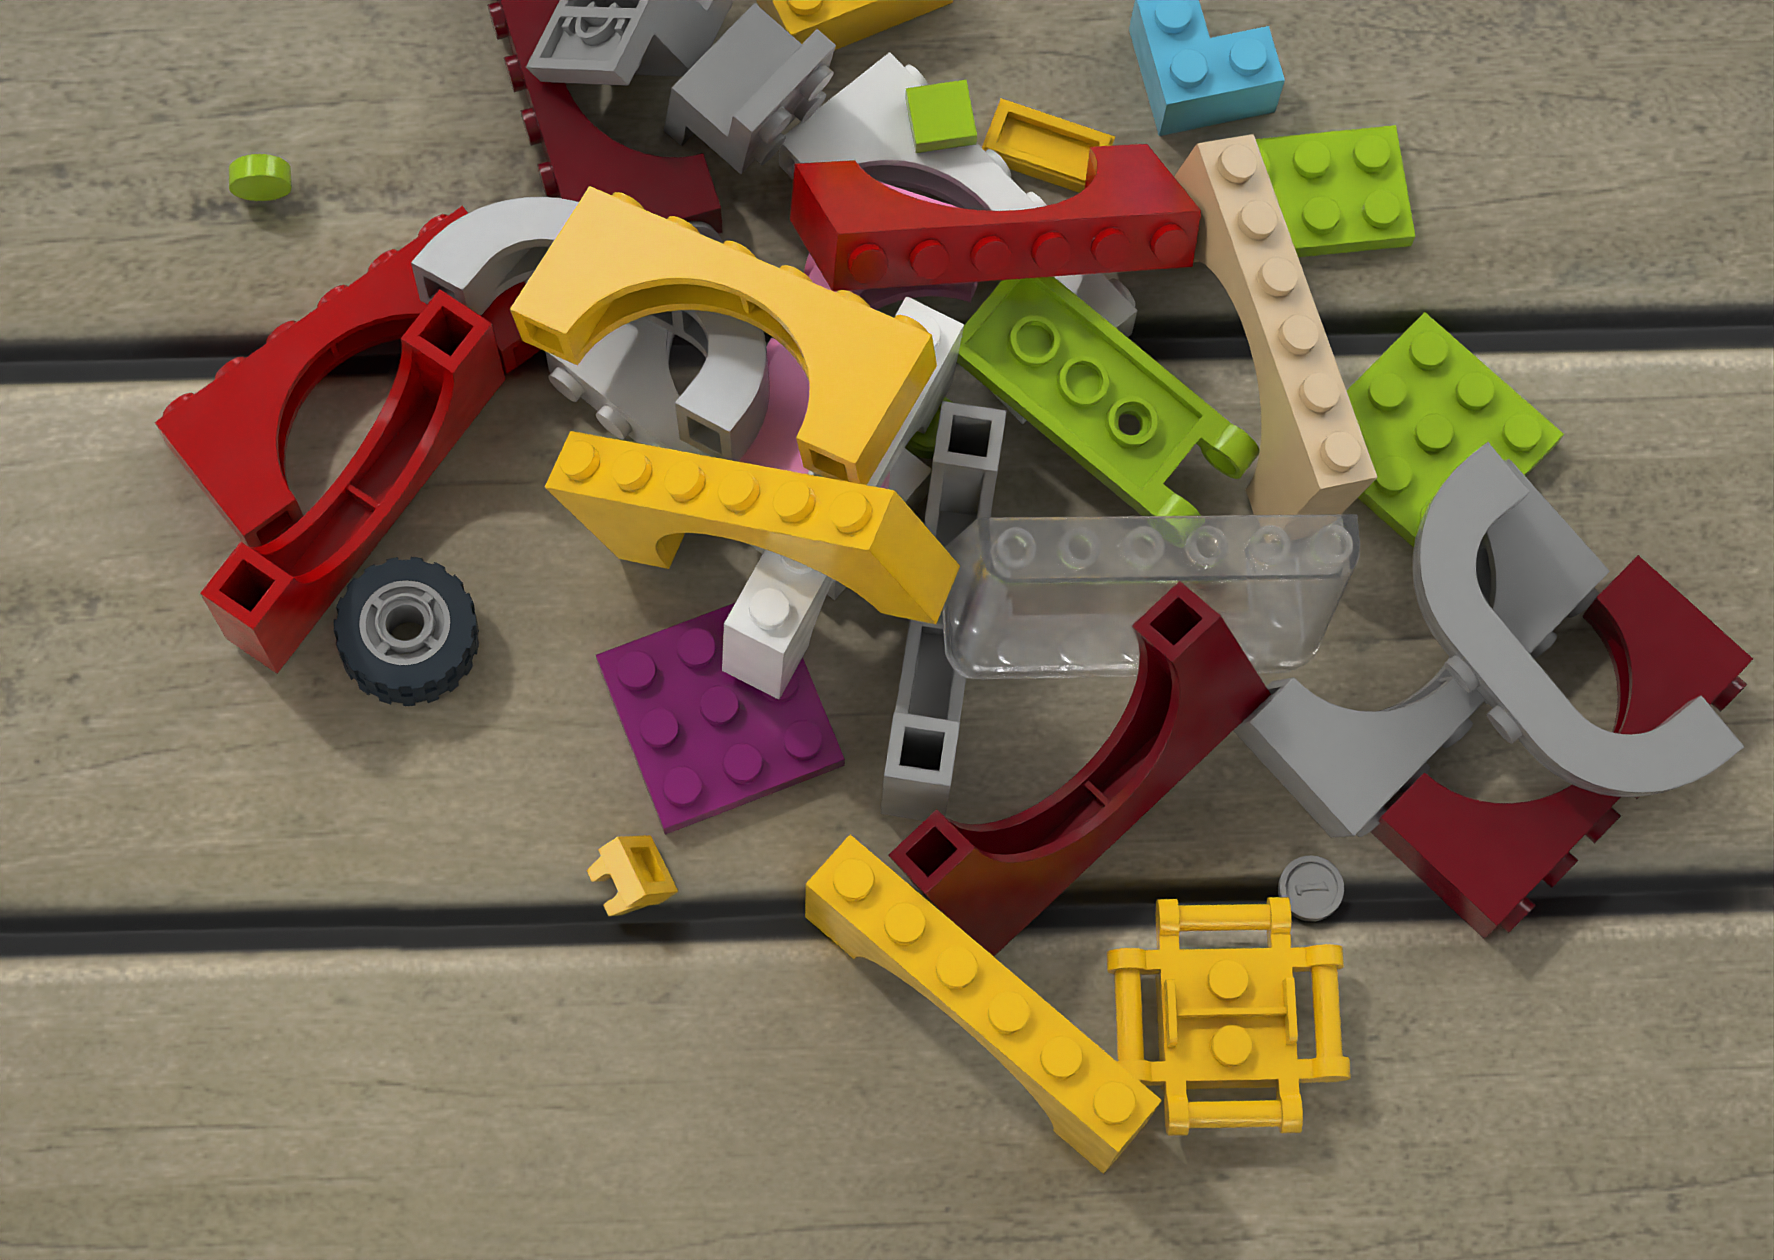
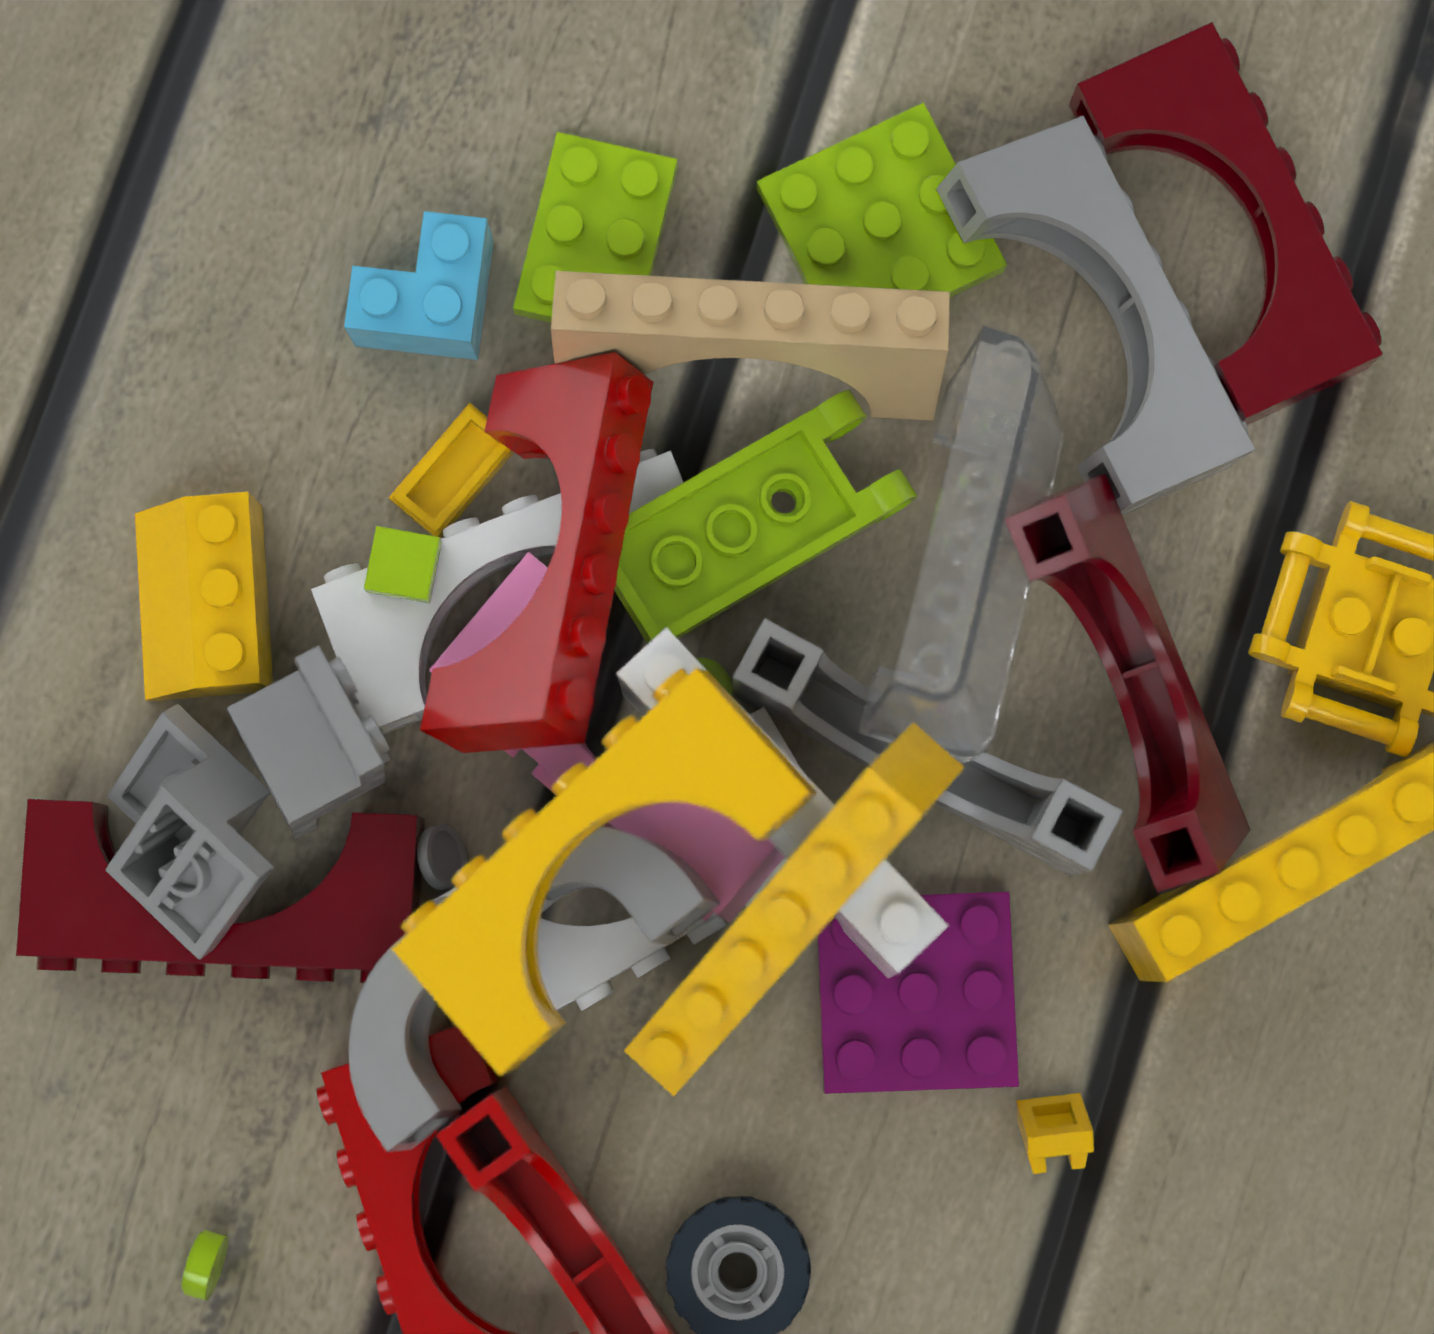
camera: 65 degrees left, 10 degrees up
(1312, 887) = (1270, 506): light grey piece -> none
(1521, 694) = (1294, 151): light grey arch -> none

